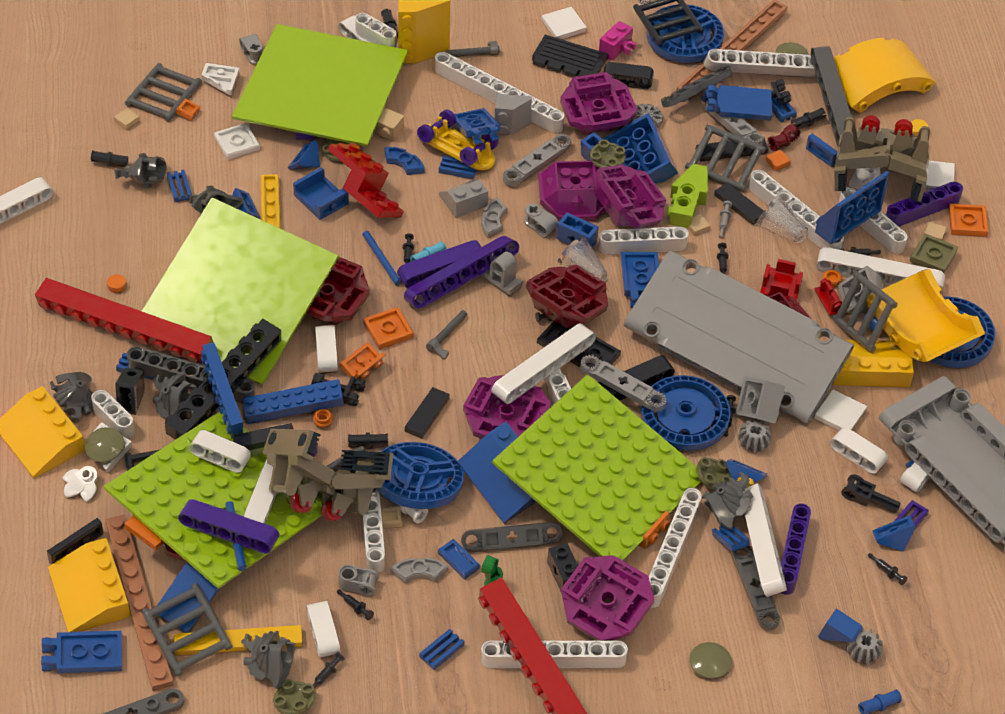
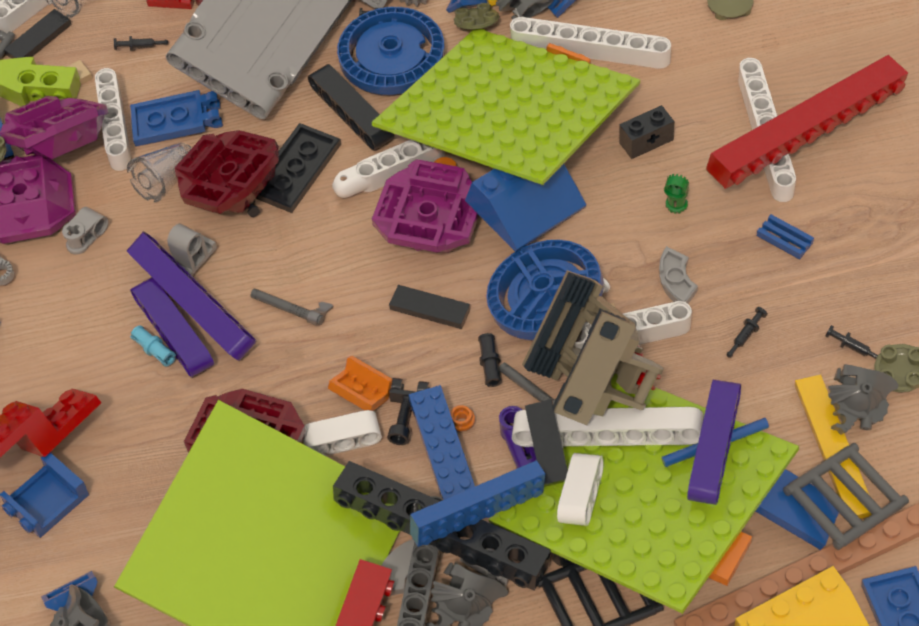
camera: 90 degrees left, 5 degrees up
(270, 199) = (70, 560): yellow tile -> none
(323, 629) = (795, 355): white beam -> none
(358, 580) = (714, 333): light grey piece -> none
(381, 257) = (160, 402): blue bar -> none
(388, 328) = (290, 372): orange tile -> none
(408, 247) = (143, 372): black piece -> none
(459, 559) = (650, 240): blue tile -> none
(465, 197) = (39, 320): light grey slope -> none
(491, 217) = (75, 288): light grey tile -> none
(526, 536) = (610, 190): dark grey piece -> none
(543, 363) = (352, 176): white beam -> none
(573, 228) = (108, 182): blue brick -> none
(601, 580) = (691, 75): magenta piece -> none
(632, 389) = (359, 112): light grey piece -> none
(725, 214) = (64, 47): light grey piece -> none

